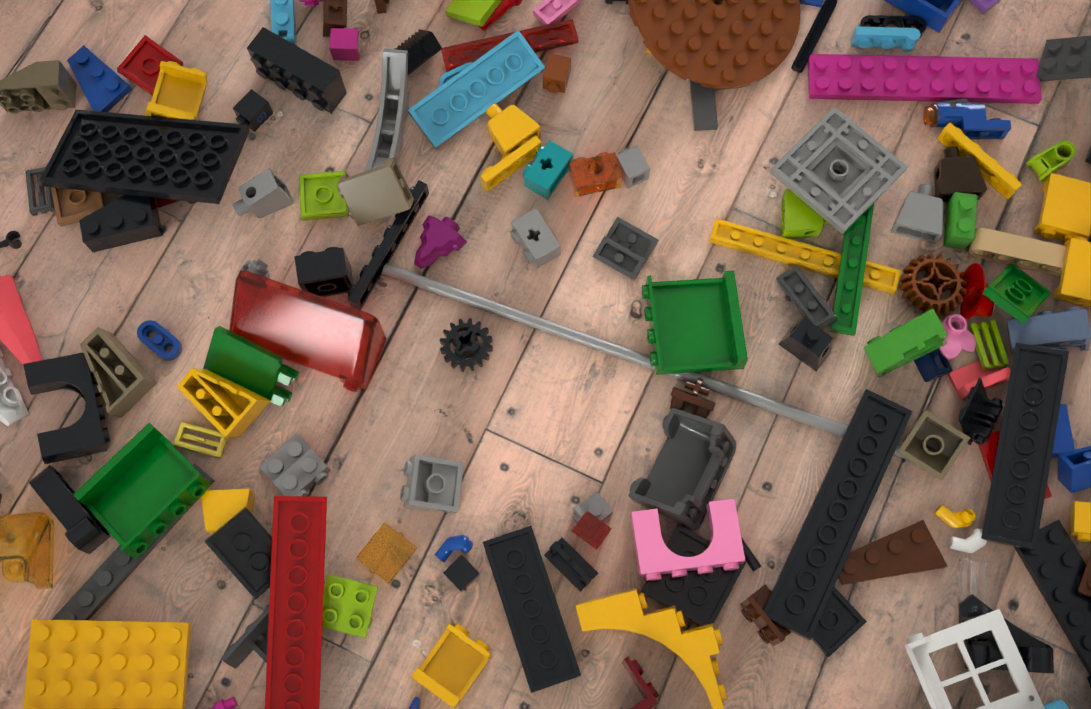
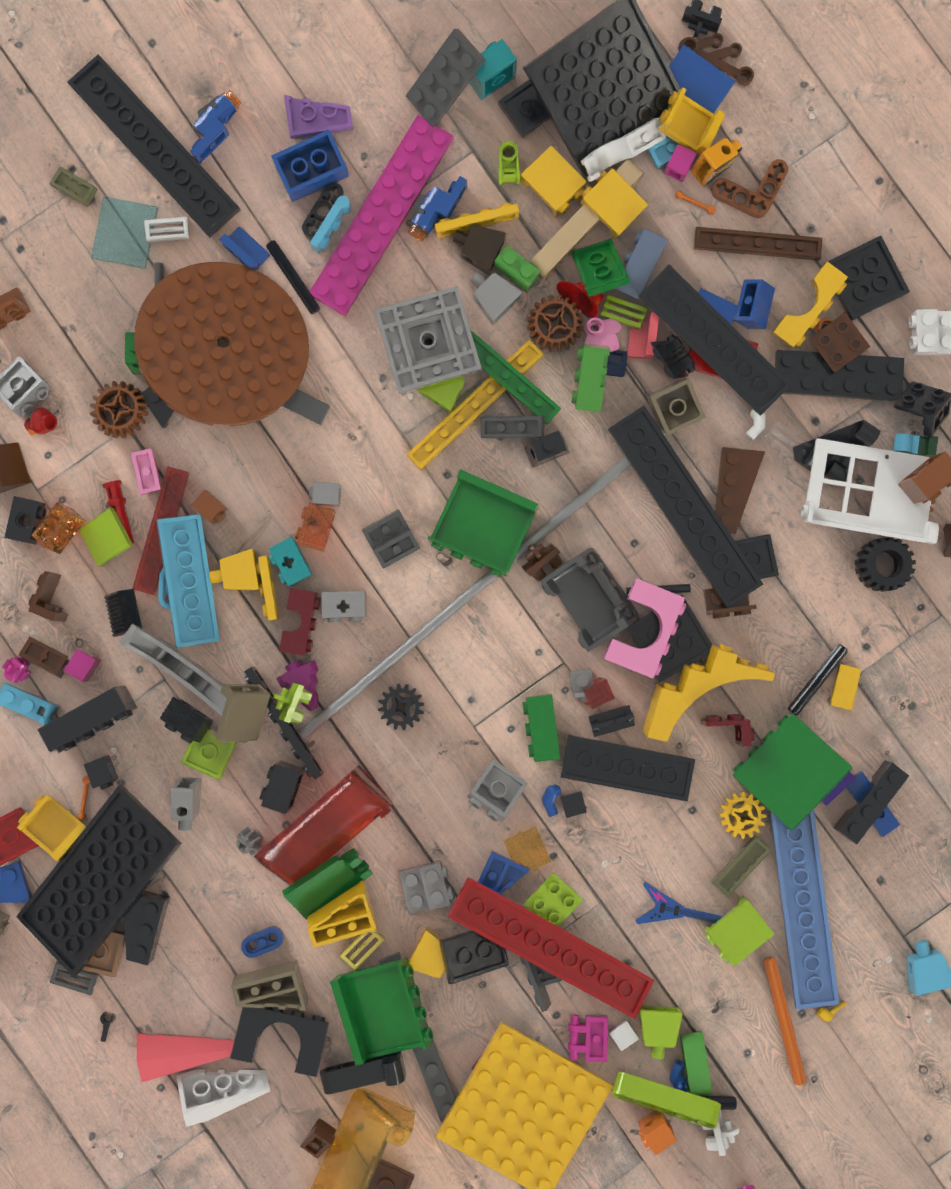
camera: 60 degrees left, 15 degrees up
(202, 117) = (81, 816): none -> orange hinge
(342, 154) = (186, 720): none -> black brick
(349, 536) = (501, 872): none -> blue wing
(424, 237) = (289, 710): none -> lime hips
(453, 665) = (637, 846): yellow panel -> none
(478, 216) = (299, 641): none -> dark red arch
(523, 494) = (541, 728): none -> green brick
(957, 519) = (736, 422): yellow arm -> none

